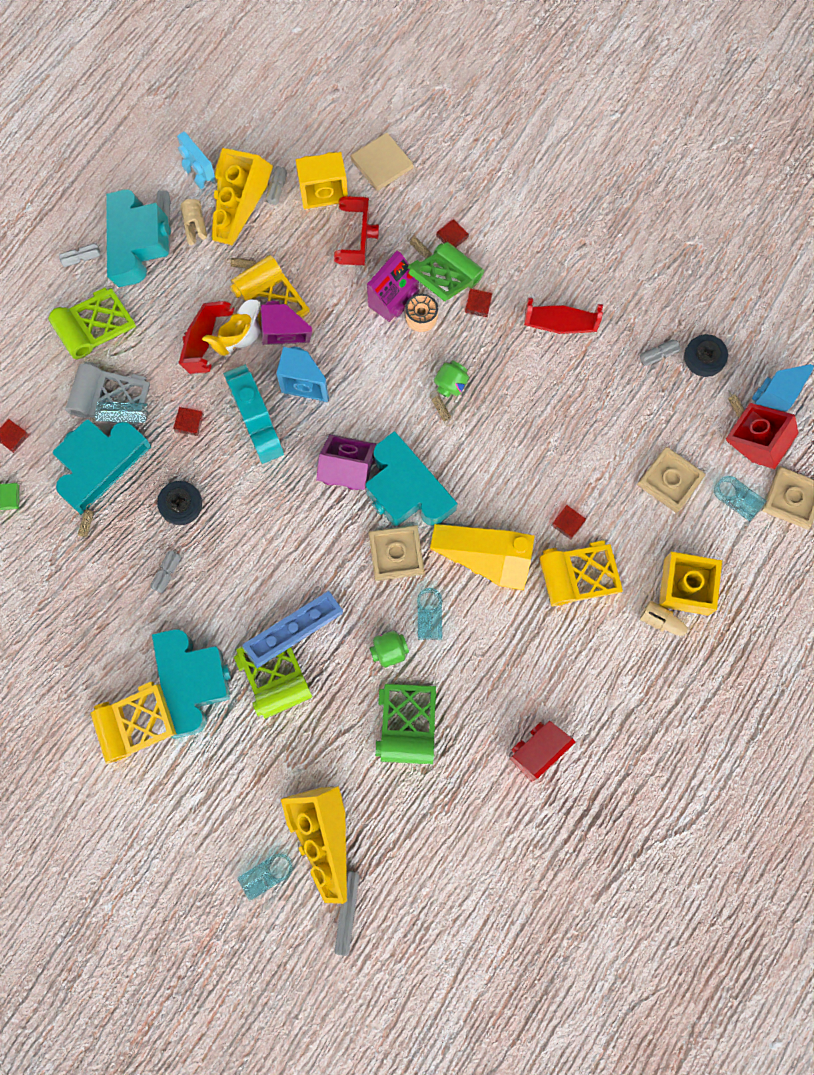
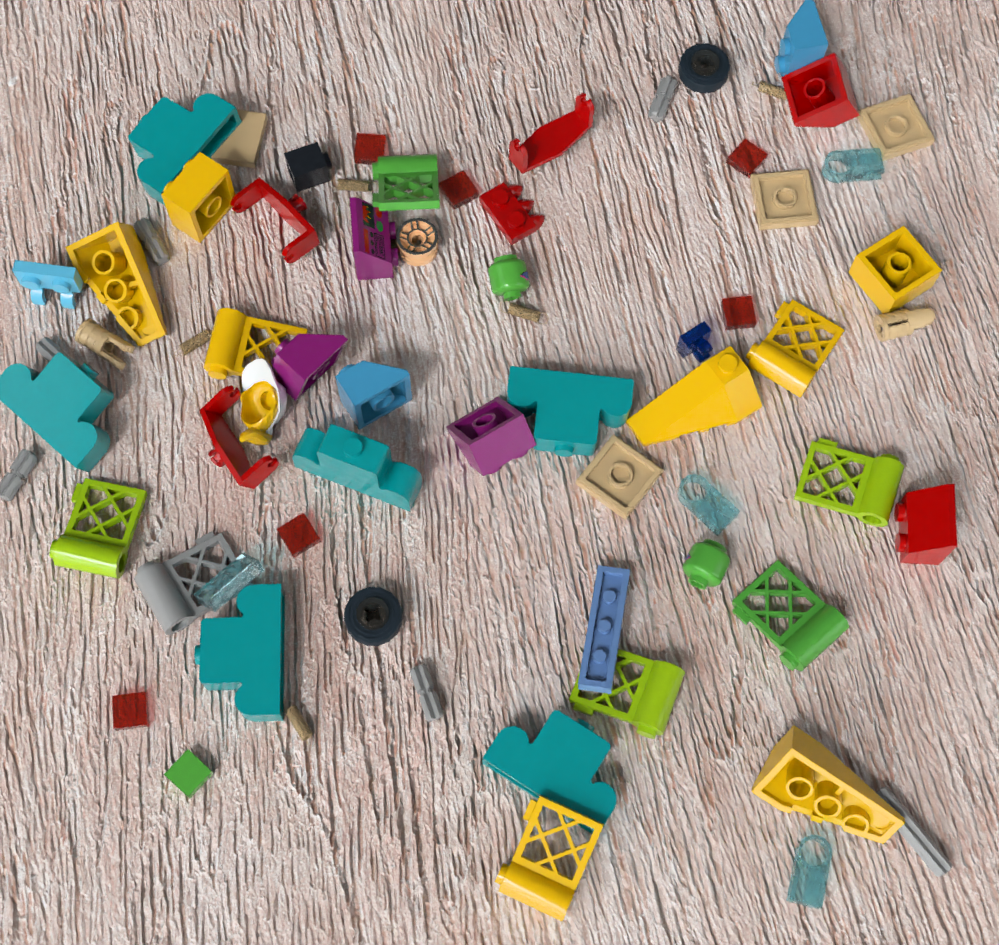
camera: 45 degrees left, 5 degrees down
(346, 132) = (174, 135): none -> teal brick
(403, 214) = (308, 166): none -> black brick
(495, 344) = (509, 213): none -> red plate
(521, 515) = (695, 342): none -> clear blue tile
(541, 698) = (875, 490): none -> lime piece
(675, 434) = (747, 158): none -> clear red tile

